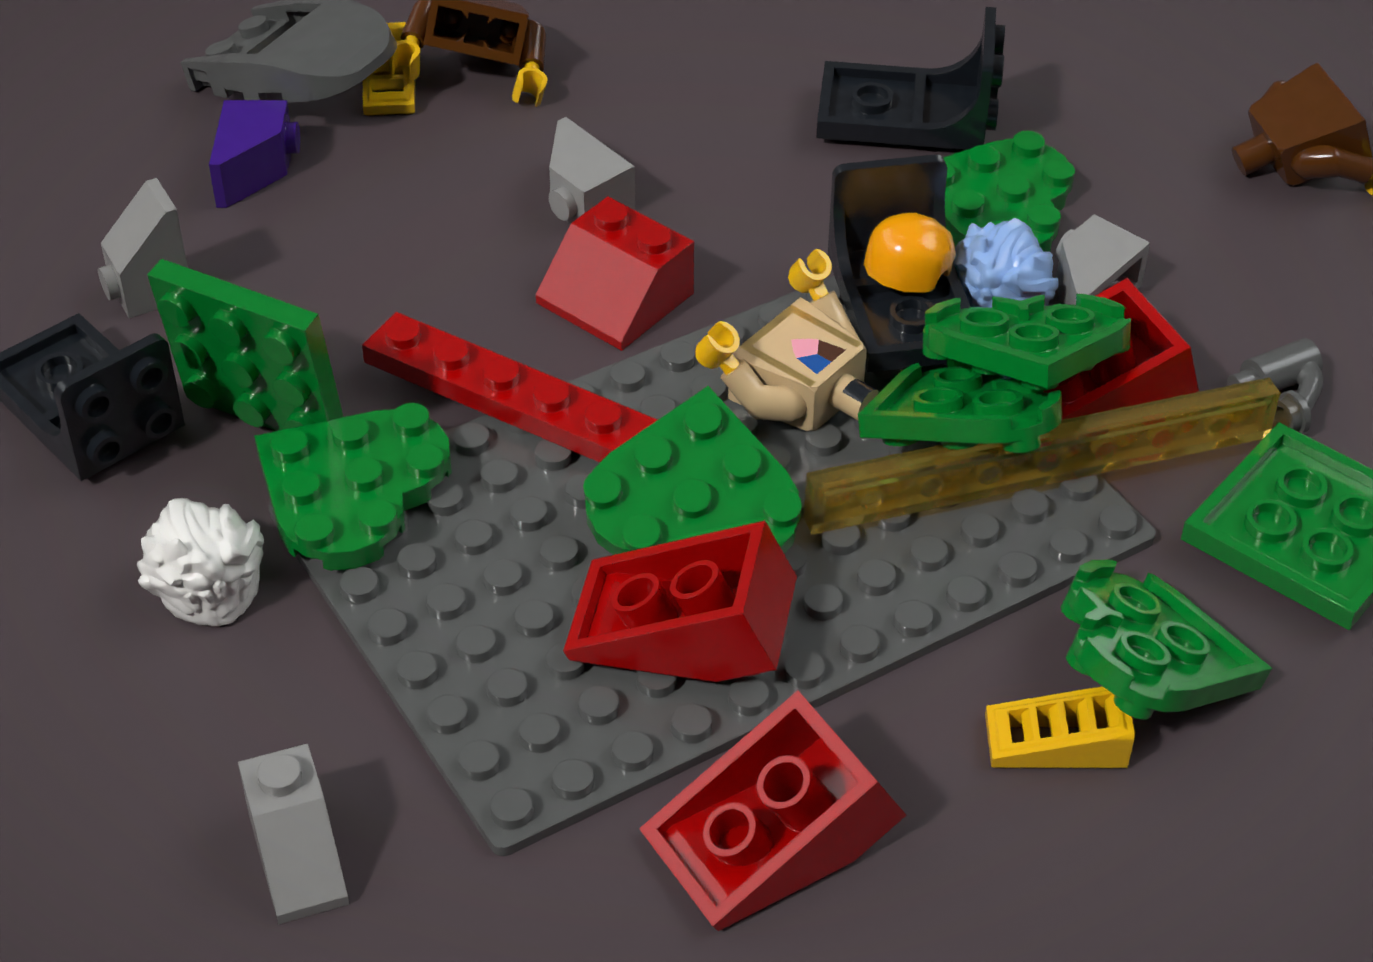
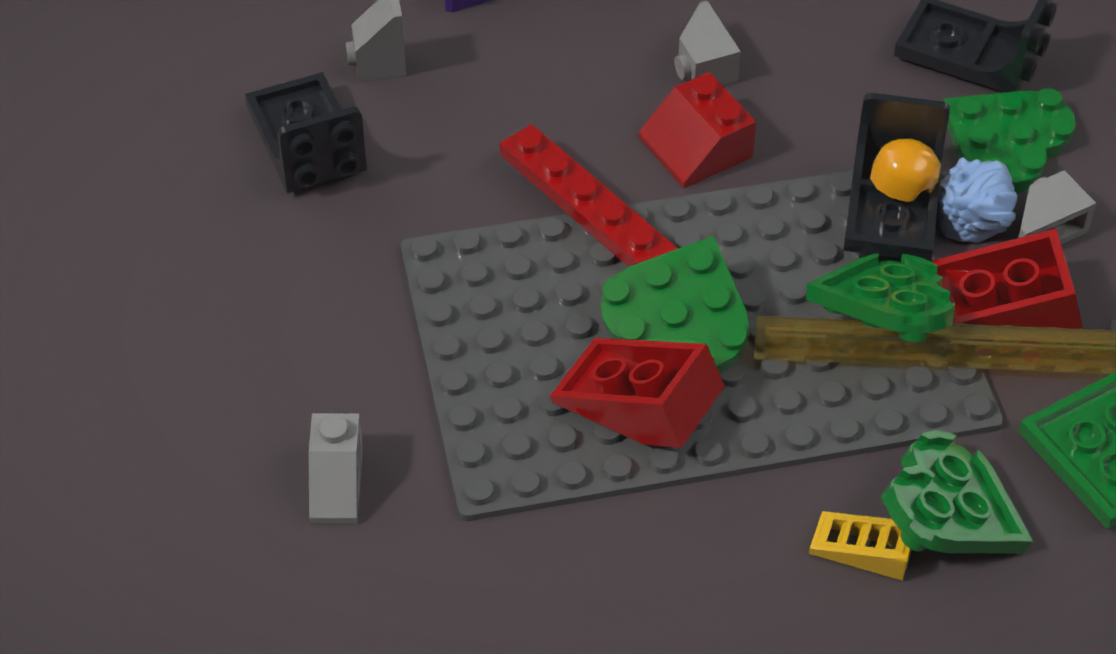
camera: 20 degrees right, 5 degrees up
(202, 562) = (341, 271): white hair -> none
(245, 350) = (415, 136): green plate -> none
(349, 480) = (456, 238): green plate -> none
(771, 816) = (643, 543): red slope -> none
(800, 362) = (794, 233): tan torso -> none
(1028, 338) = (956, 258): green plate -> none

